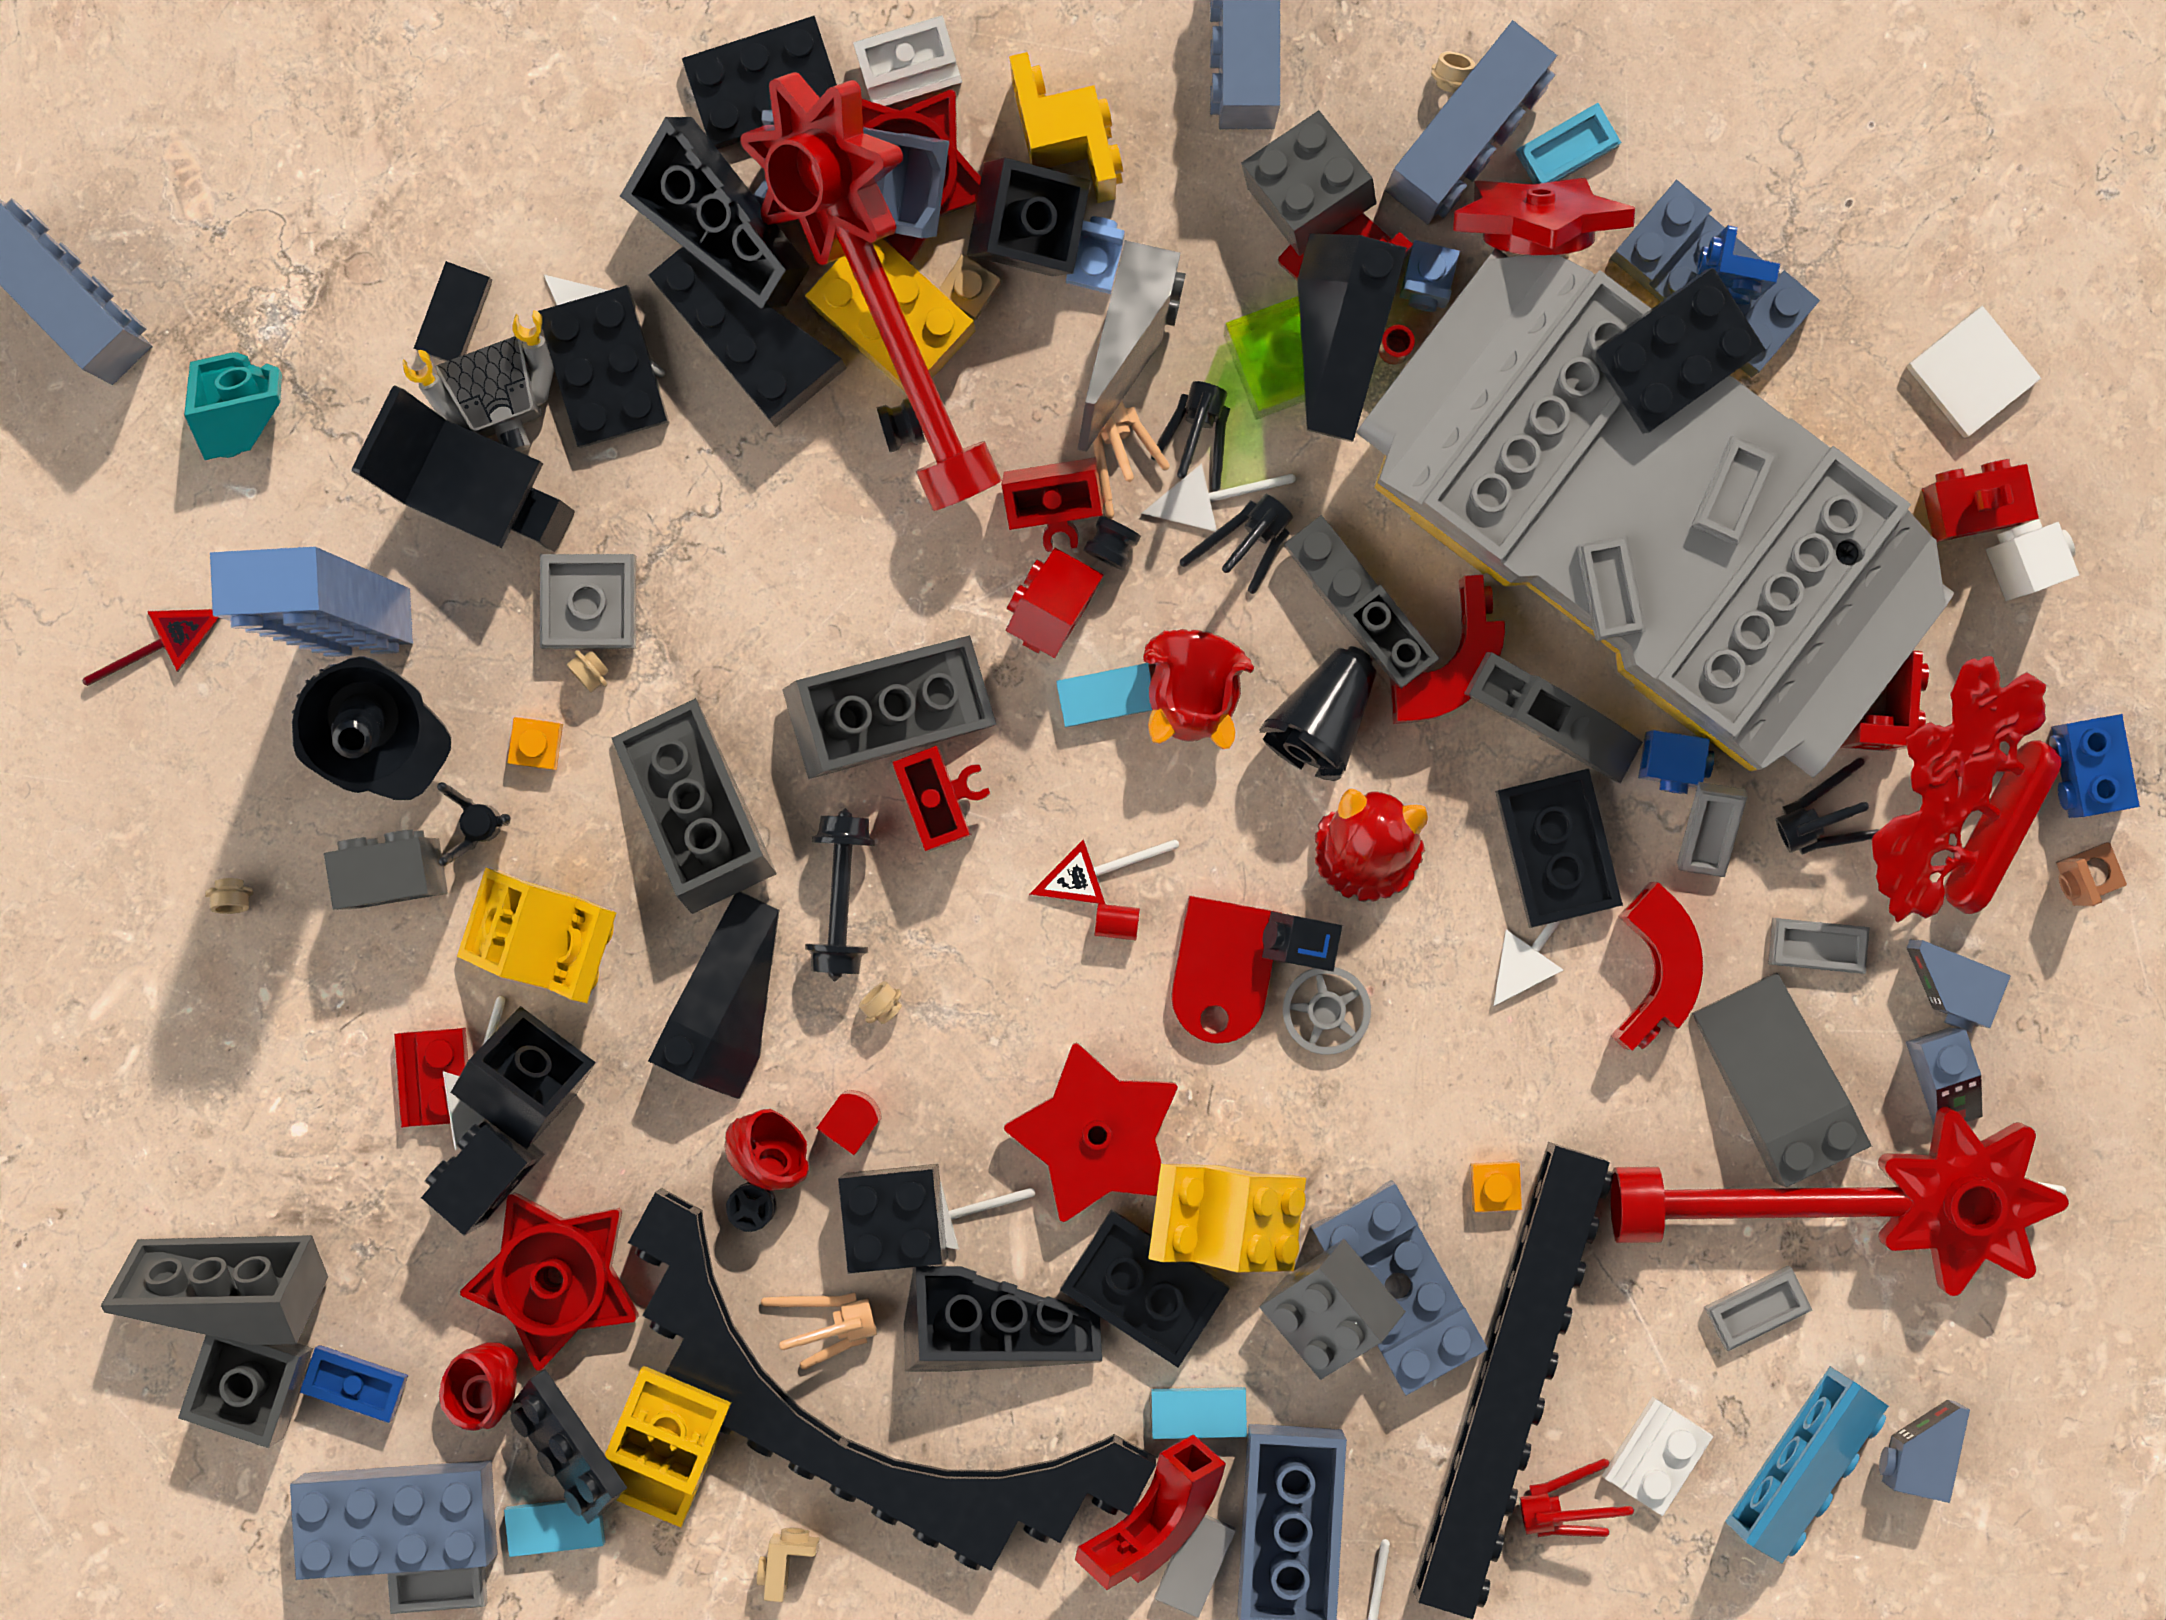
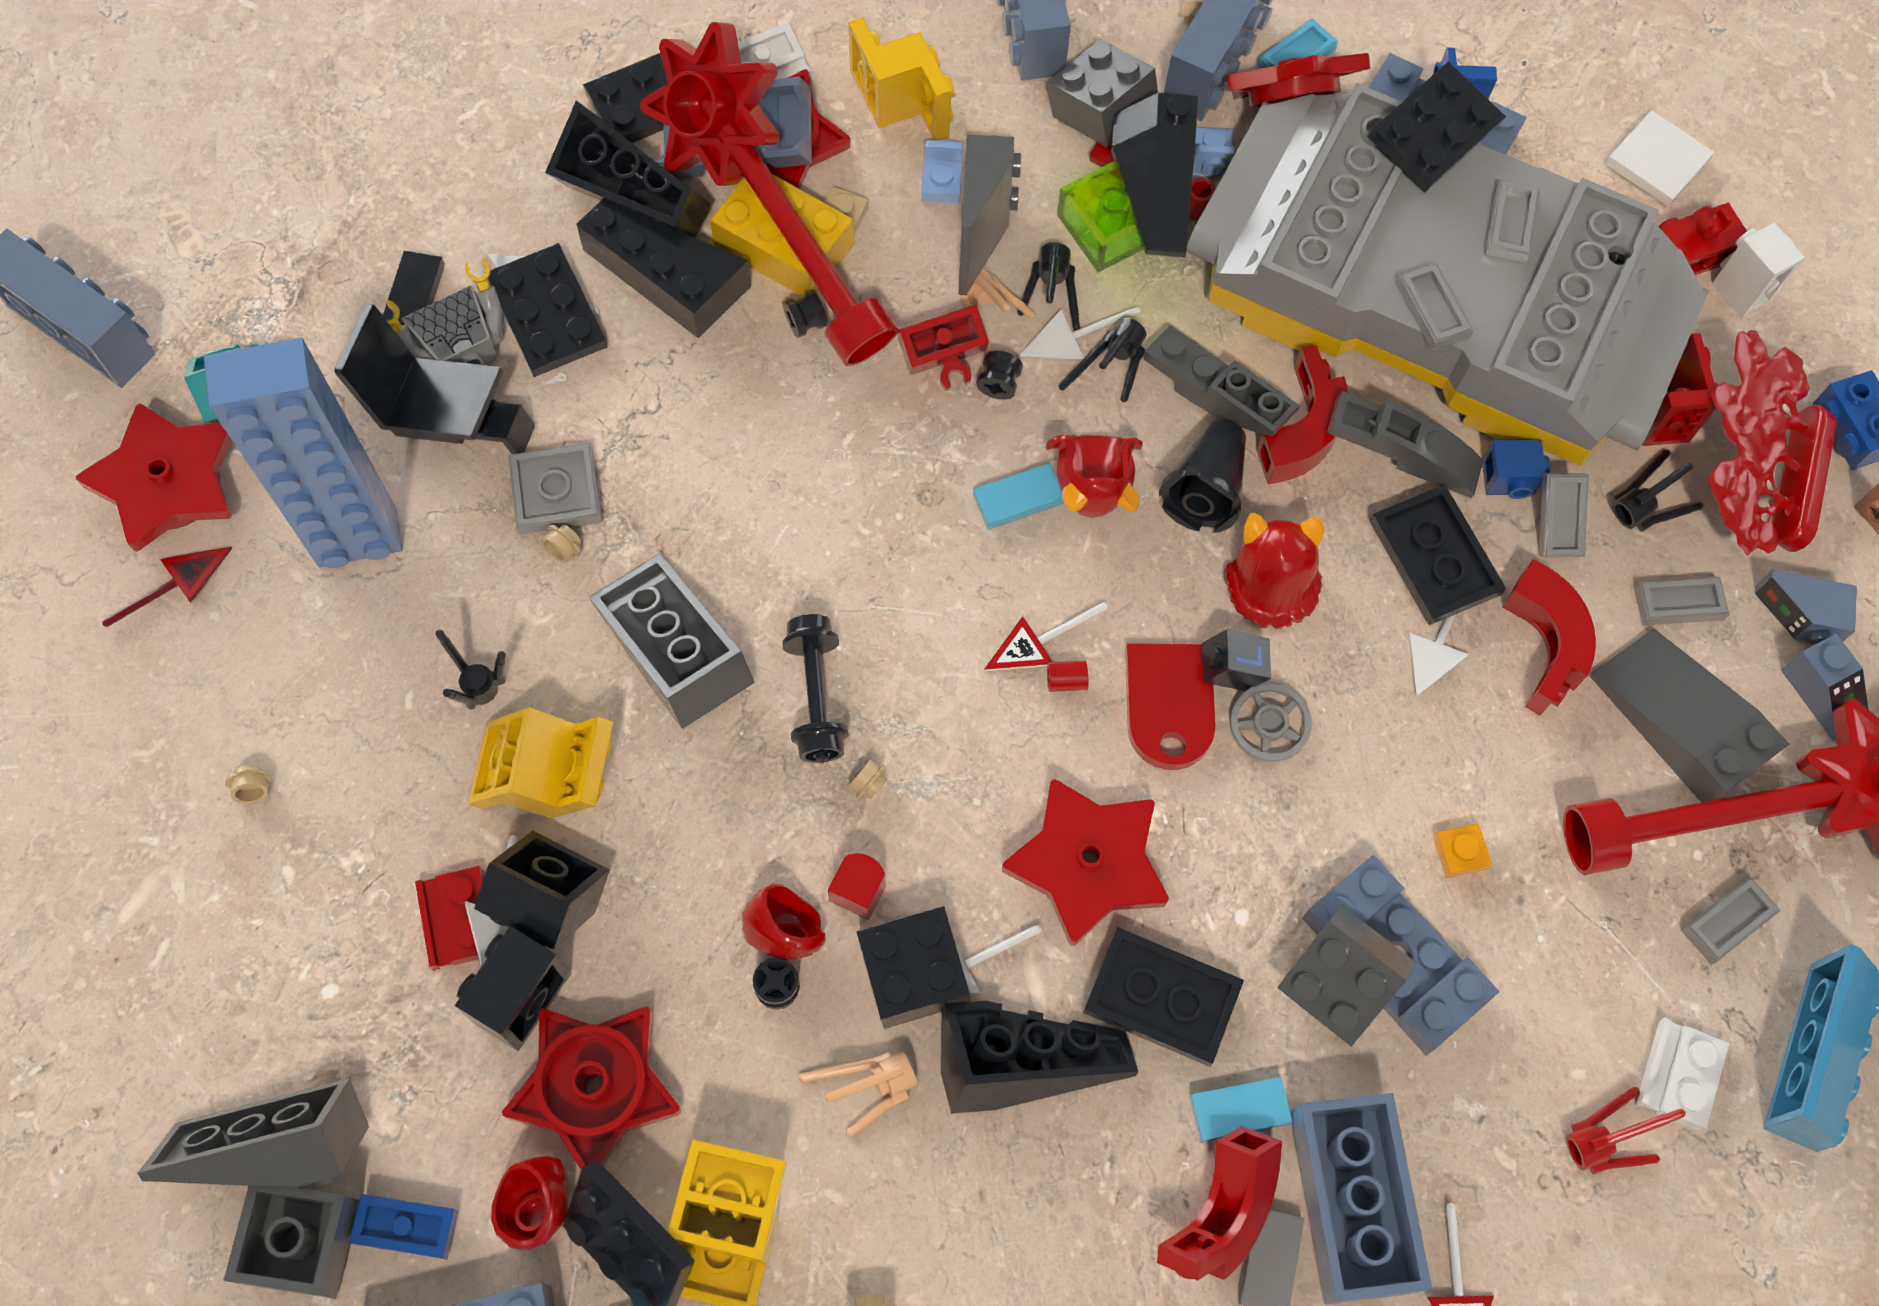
camera: 15 degrees left, 20 degrees down
(120, 510) = (162, 476): none -> red plate
(368, 730) = (368, 608): black piece -> none
(384, 873) = (393, 729): dark grey brick -> none
(535, 743) = (521, 612): light orange plate -> none
(722, 1010) = (721, 808): black wedge -> none
(888, 706) = (827, 530): dark grey slope -> none
(935, 798) = (887, 591): red brick -> none
(957, 1508) = (1026, 1243): black arch -> none
(1028, 217) = (883, 143): black brick -> none
(1052, 602) = (958, 421): red brick -> none
(1227, 1218) = (1228, 910): yellow bracket -> none
(1511, 1381) = (1527, 1031): black brick -> none

